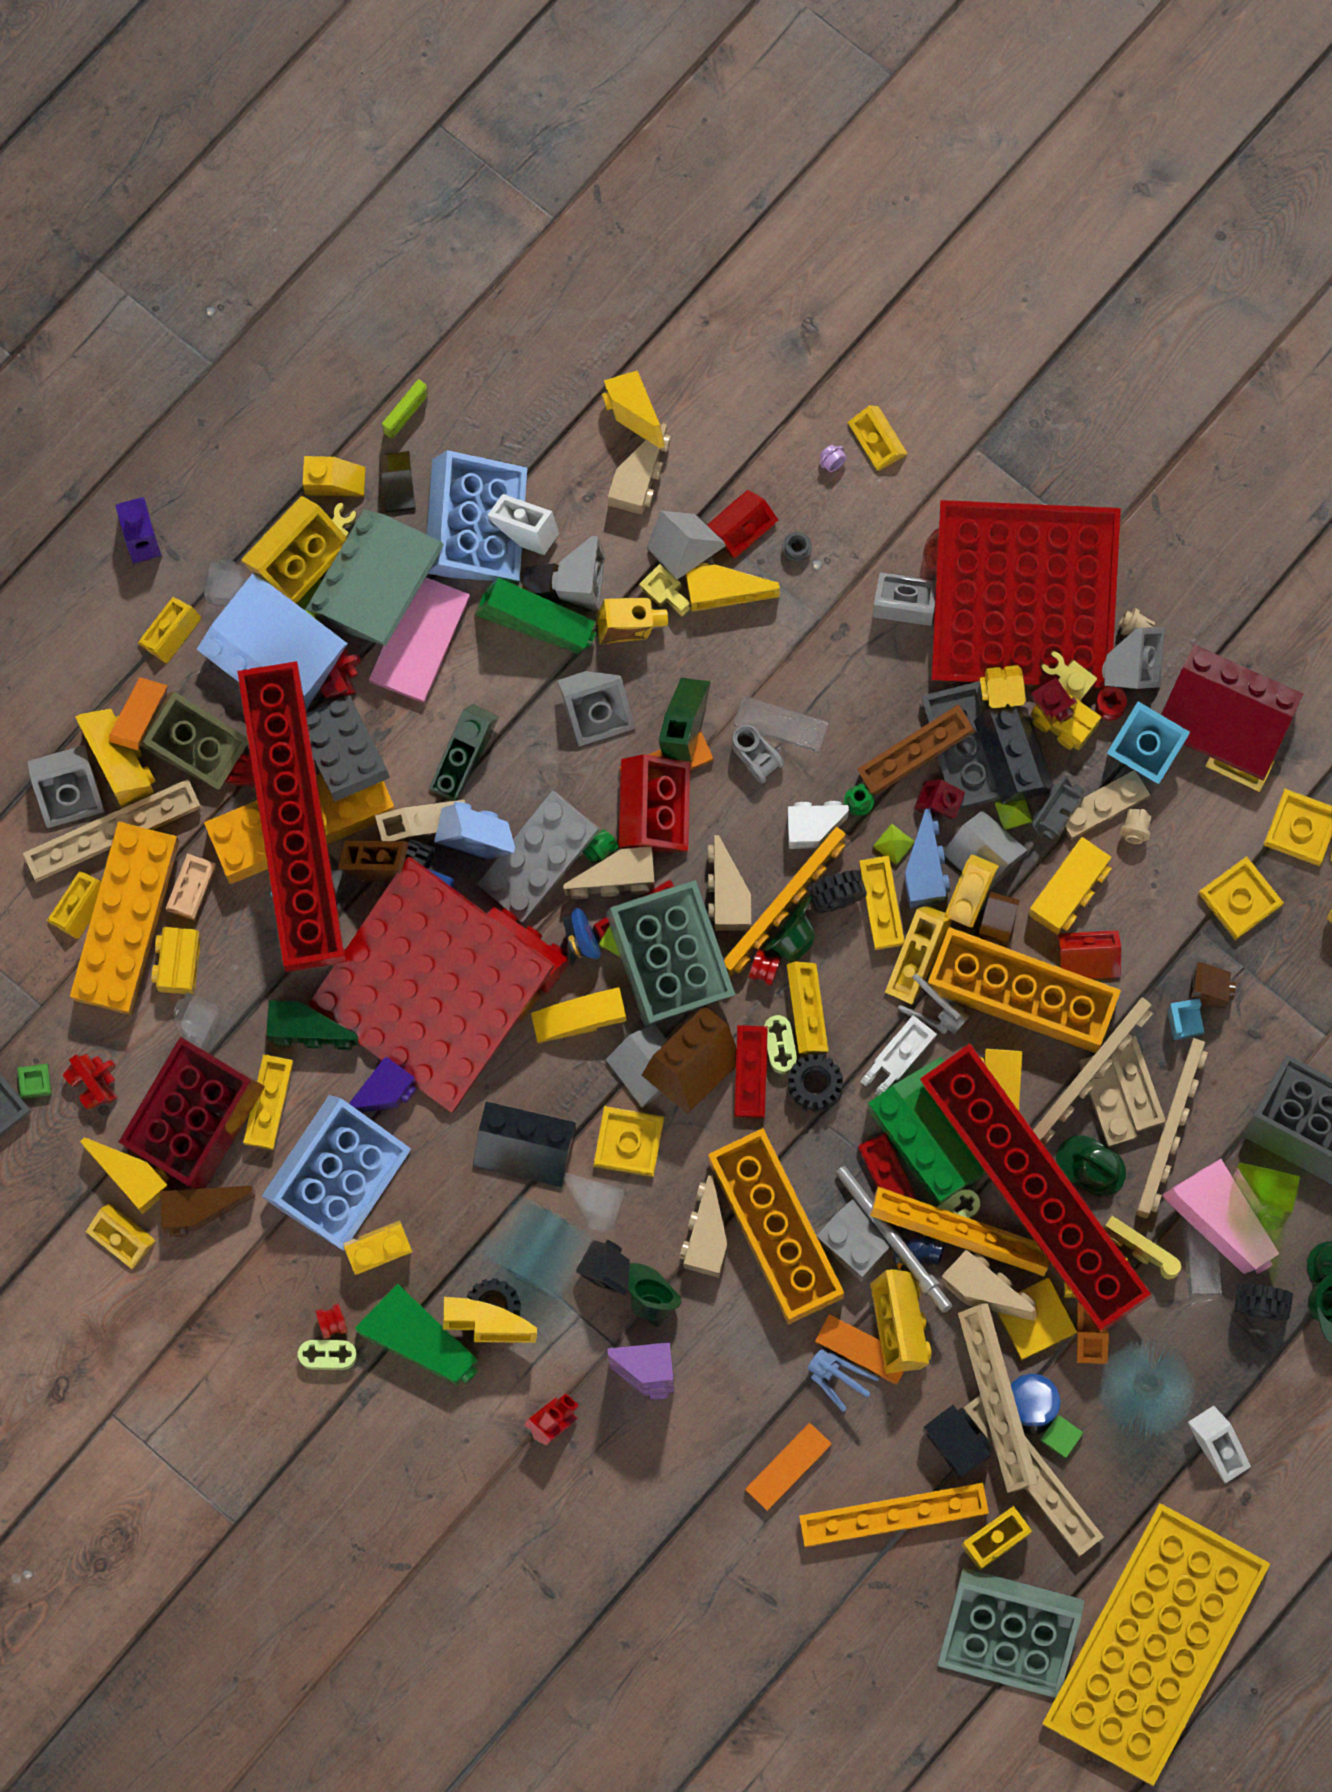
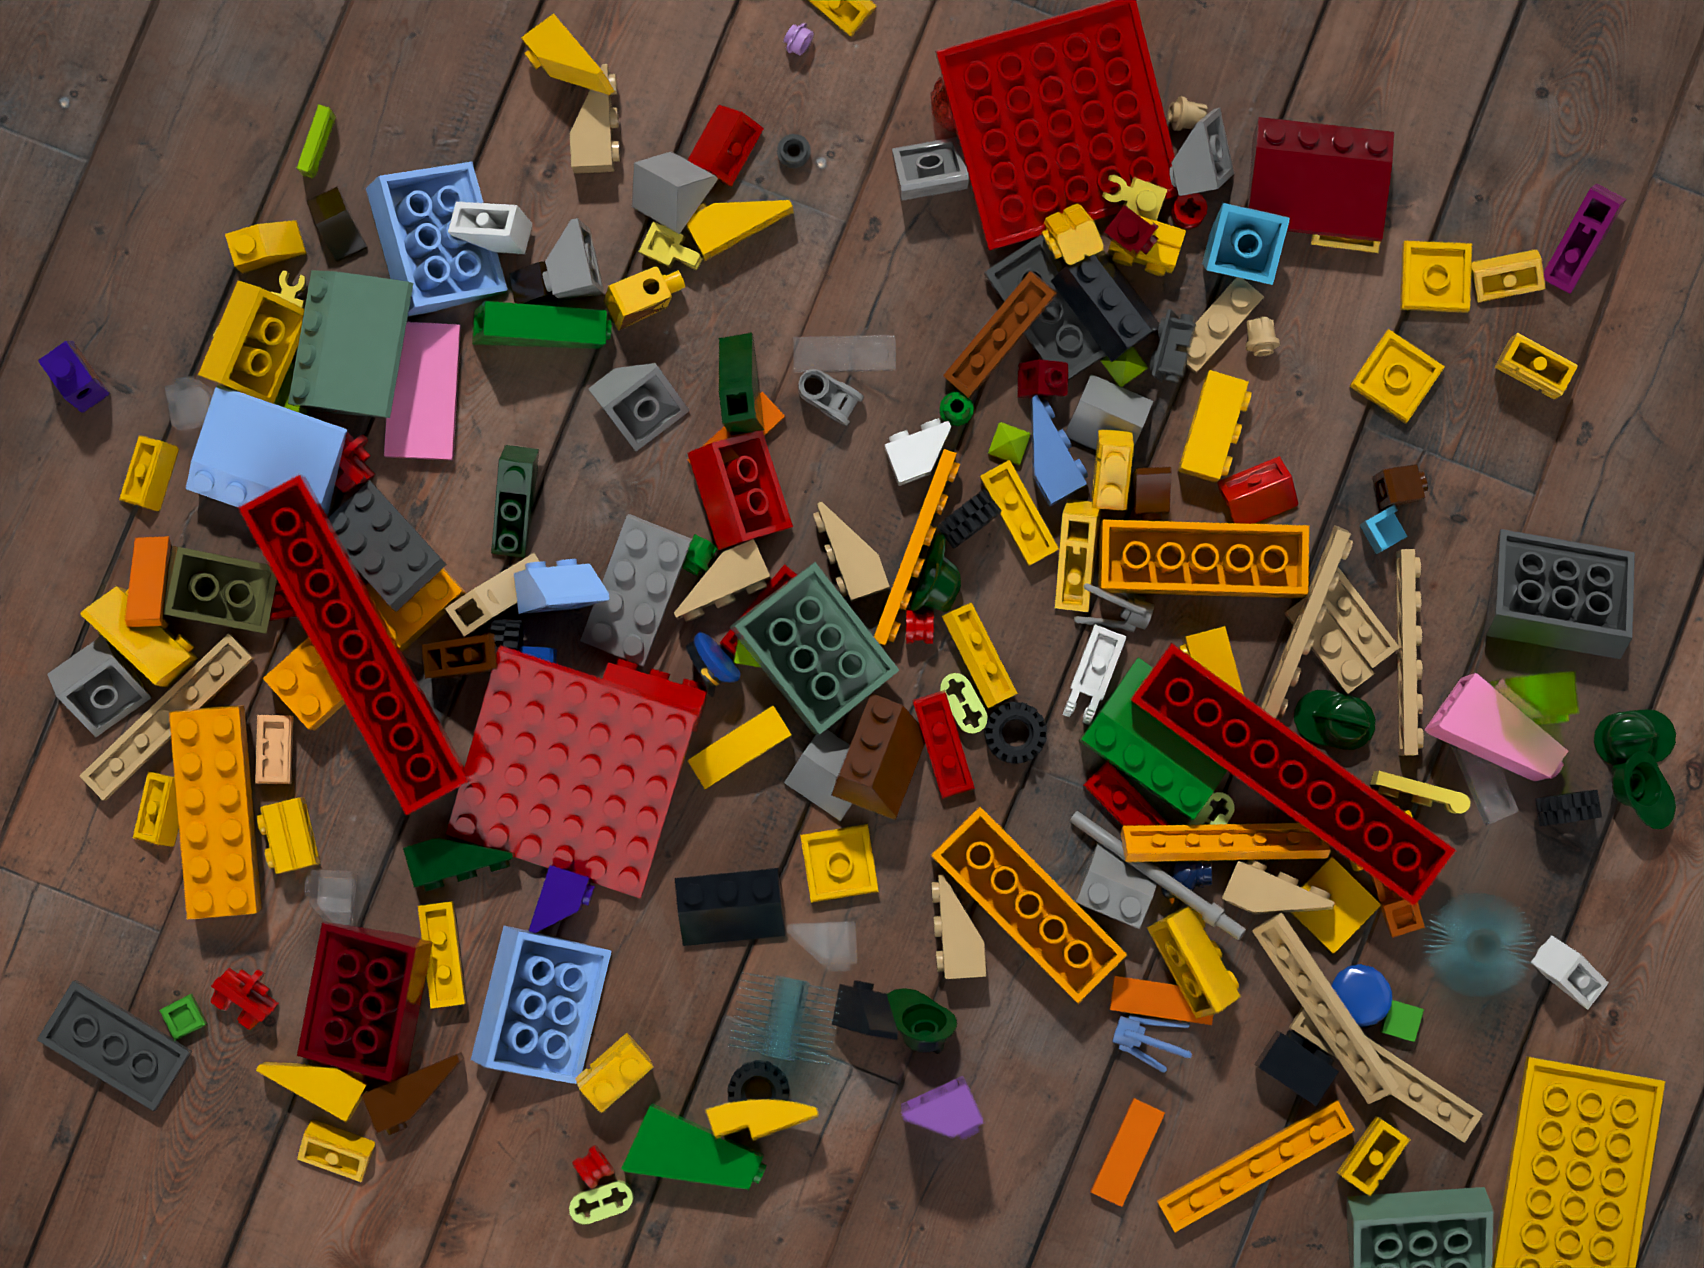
camera: 20 degrees left, 10 degrees up
(552, 1419) = (864, 1192): red hips -> none

